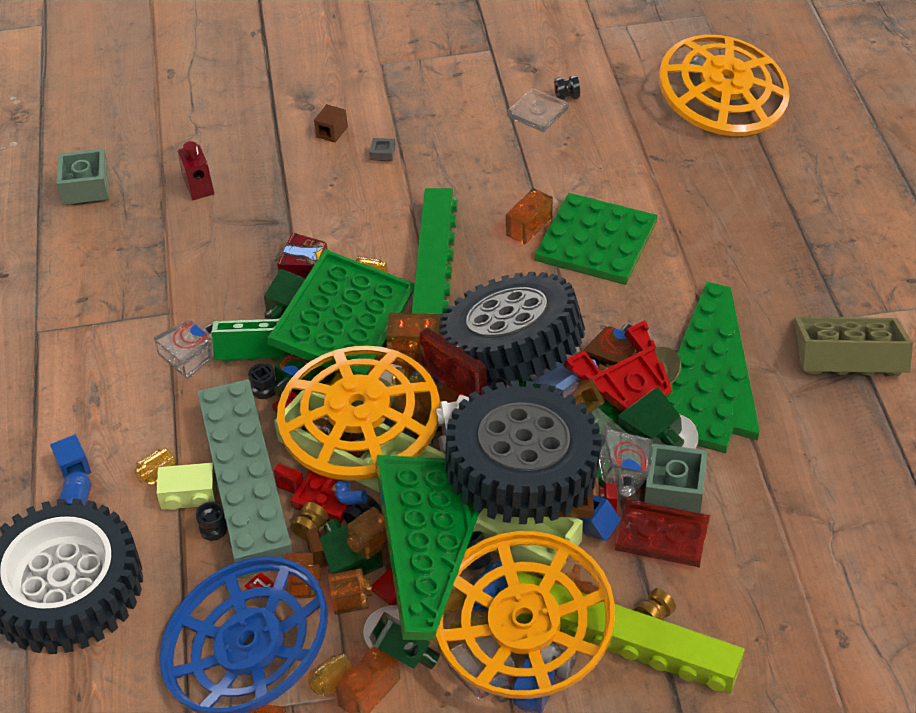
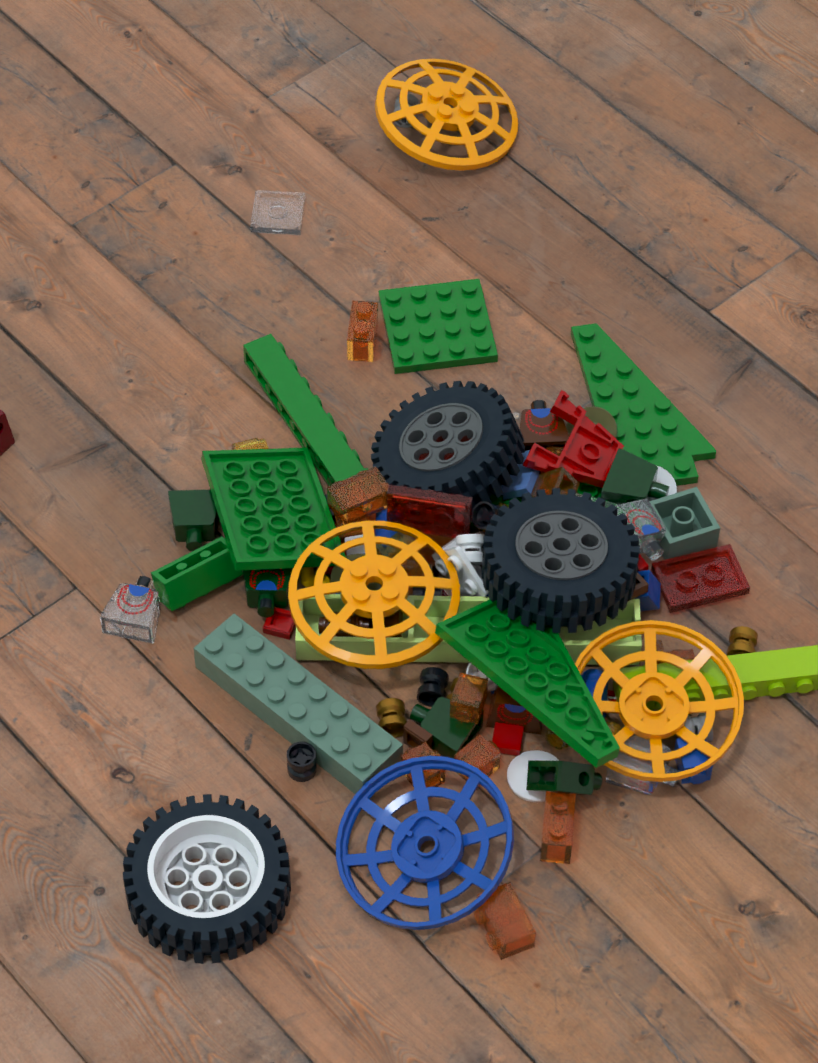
camera: 35 degrees left, 5 degrees up
(70, 456) = (113, 771): blue brick -> none
(76, 486) = (145, 799): blue head -> none
(148, 466) = (204, 738): clear yellow brick -> none
(186, 486) = (251, 742): yellowish green brick -> none
(259, 580) = (386, 795): red sticker -> none
(262, 380) = (240, 604): black wheel -> none
(287, 478) = (344, 687): red tile -> none
(301, 254) = (175, 469): torso -> none
(319, 490) = (373, 688): red plate -> none
(329, 674) = (523, 837): clear yellow brick -> none
(330, 123) = (81, 313): reddish brown brick -> none
(349, 497) = (415, 678): blue arm -> none
(382, 149) = (157, 320): dark grey plate -> none
(567, 87) = (291, 178): black wheel -> none
(853, 345) = (738, 332): olive slope -> none

